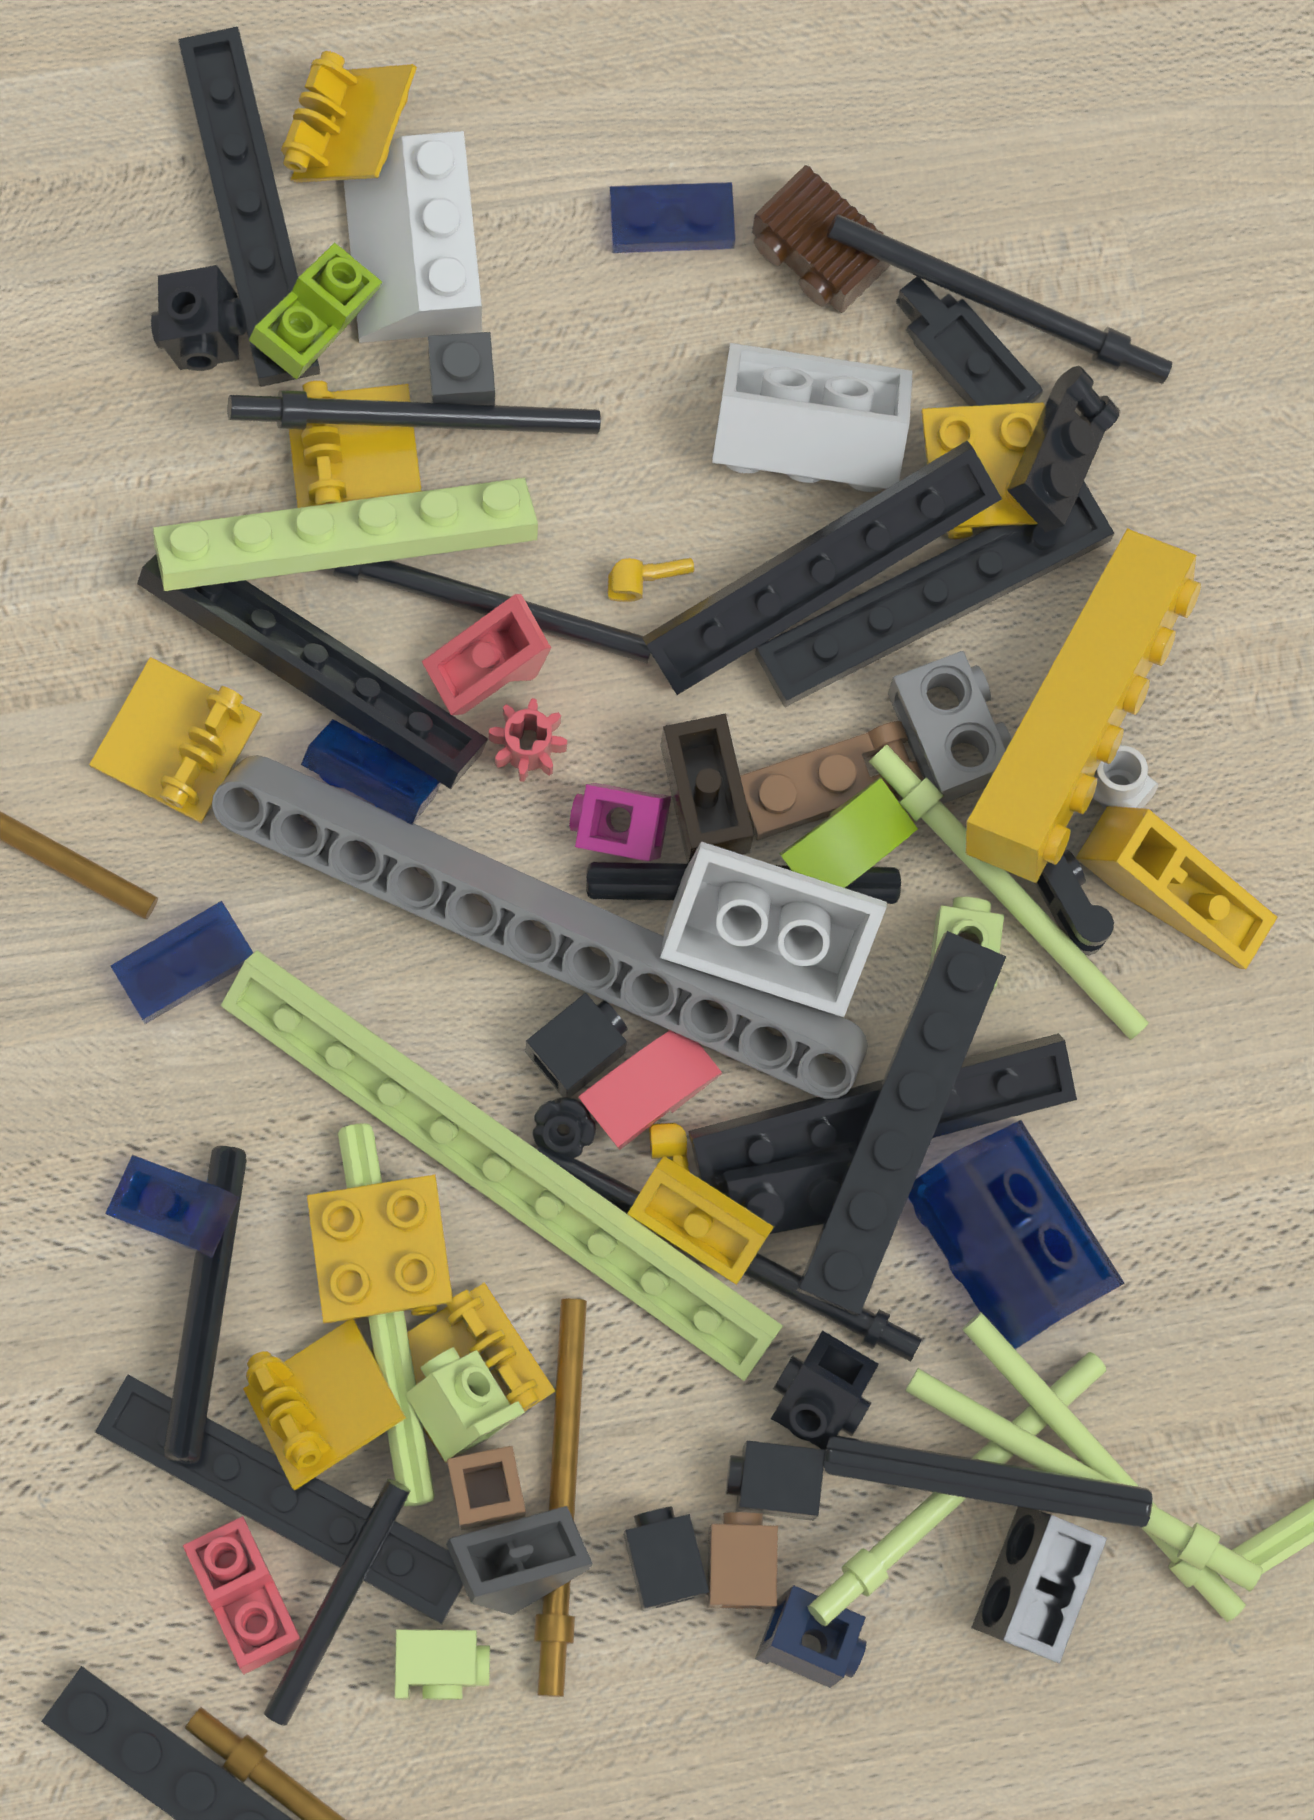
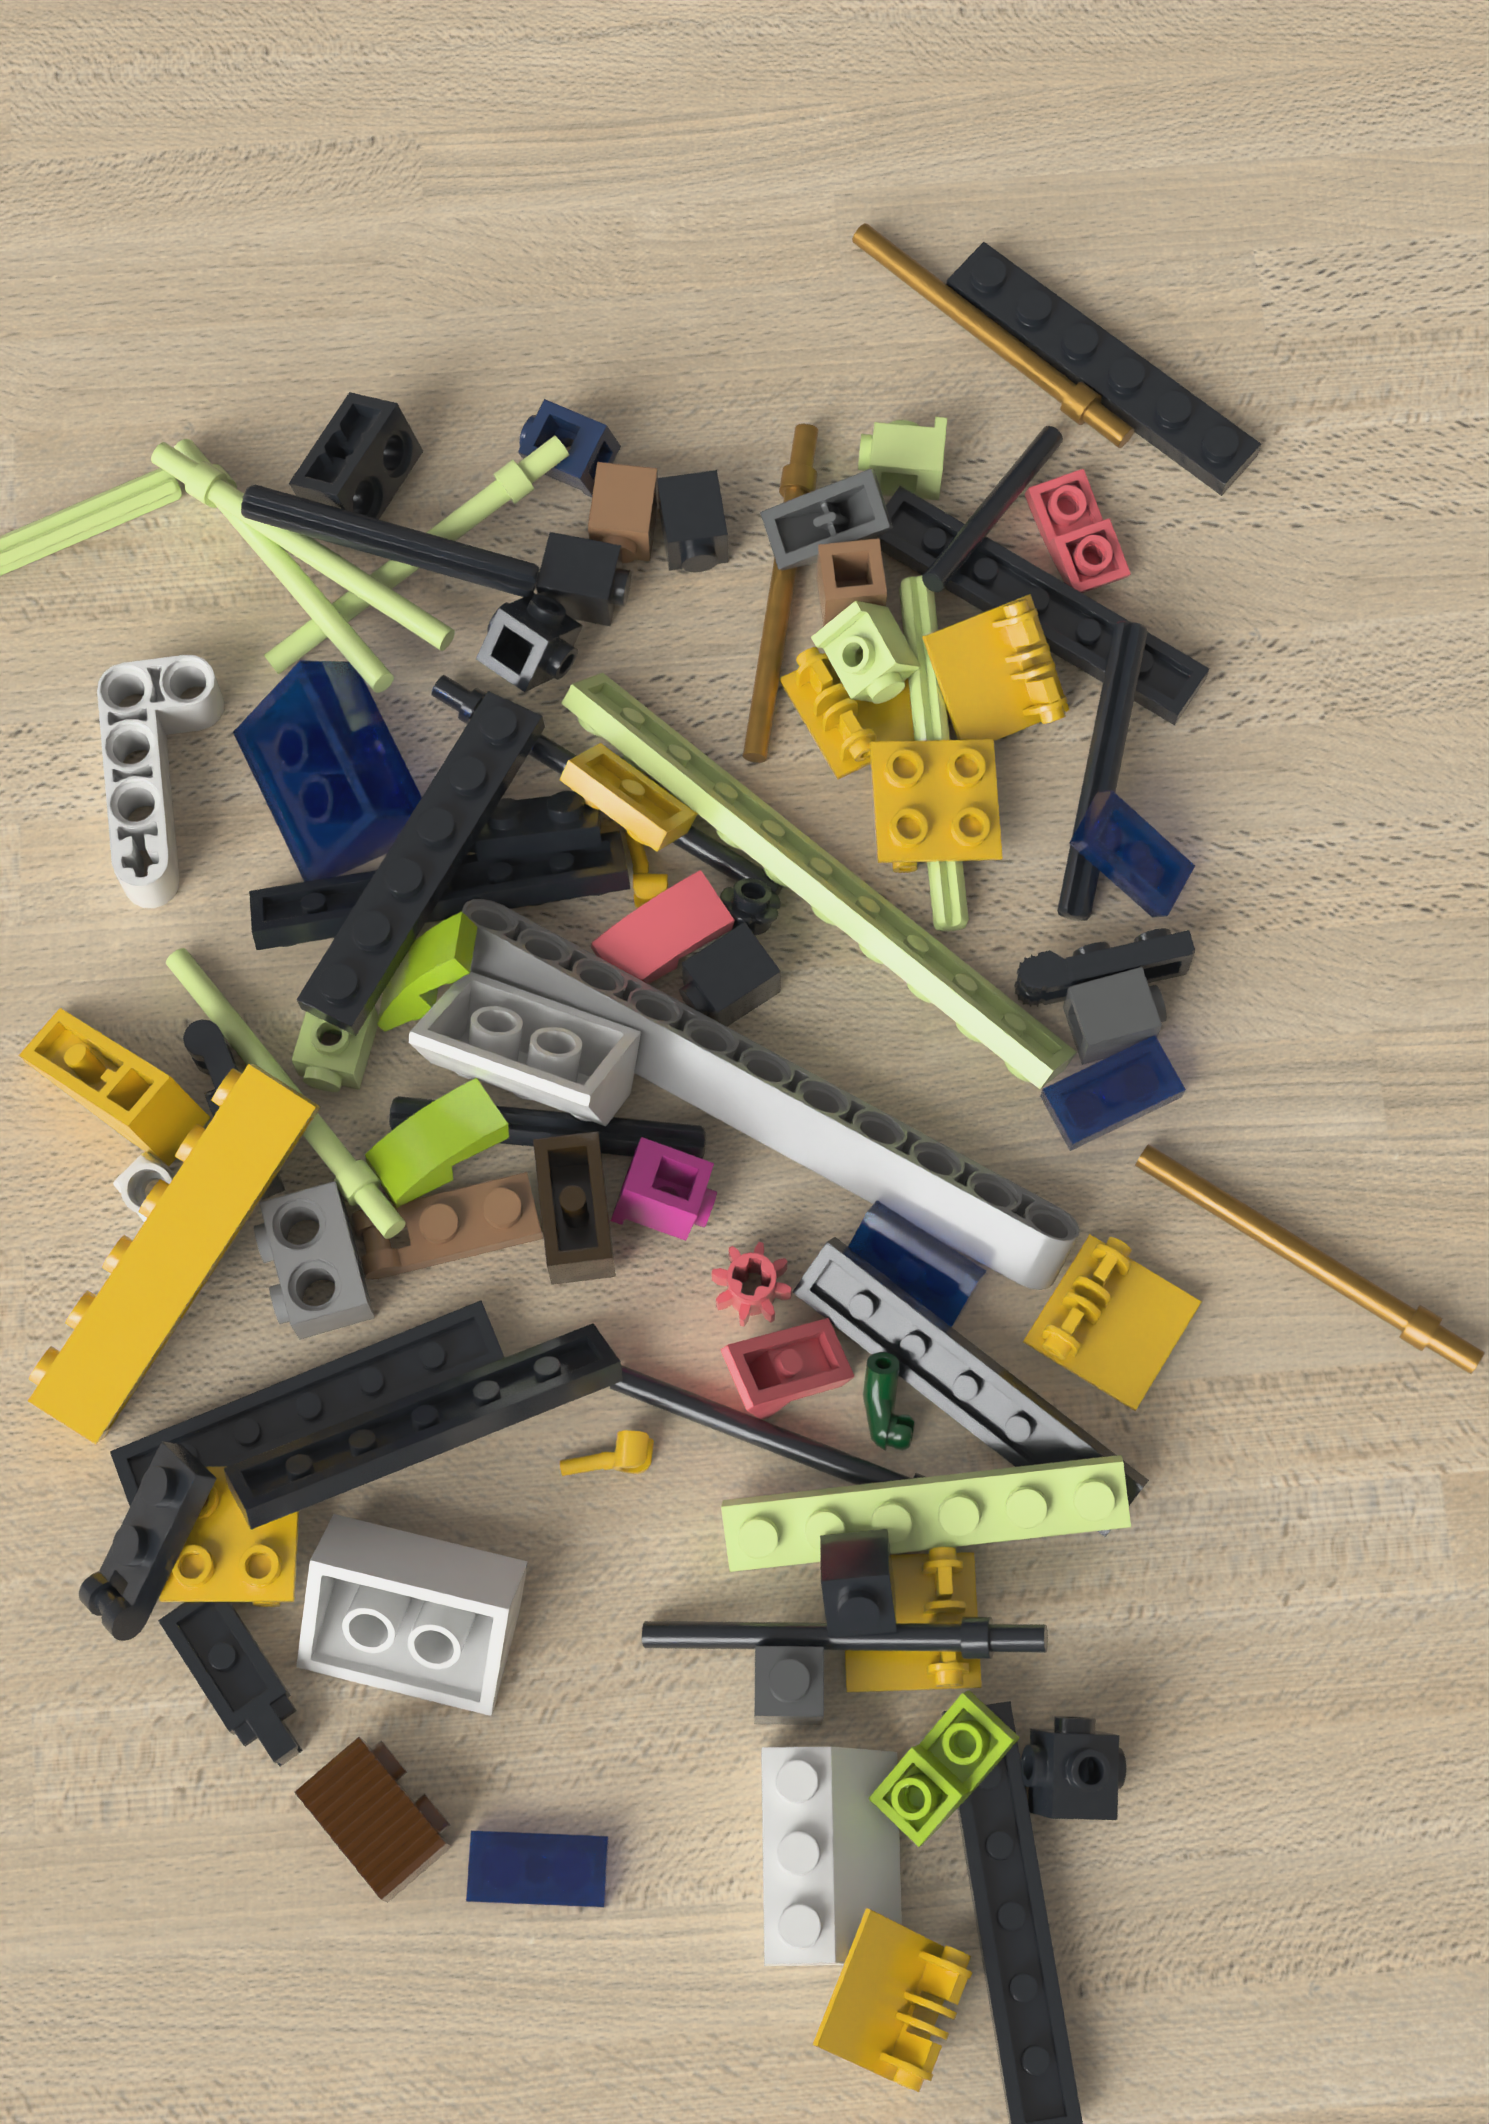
camera: 165 degrees left, 5 degrees down
(183, 1040) = (1113, 1014): none -> dark grey brick
(200, 1089) = (1157, 951): none -> black hinge
(396, 643) = (879, 1402): none -> dark green arm
(404, 453) = (858, 1583): none -> black brick
(877, 1010) = (433, 960): none -> lime slope
(1107, 346) = (80, 1670): black bar -> none
(1194, 1206) = (148, 781): none -> white beam

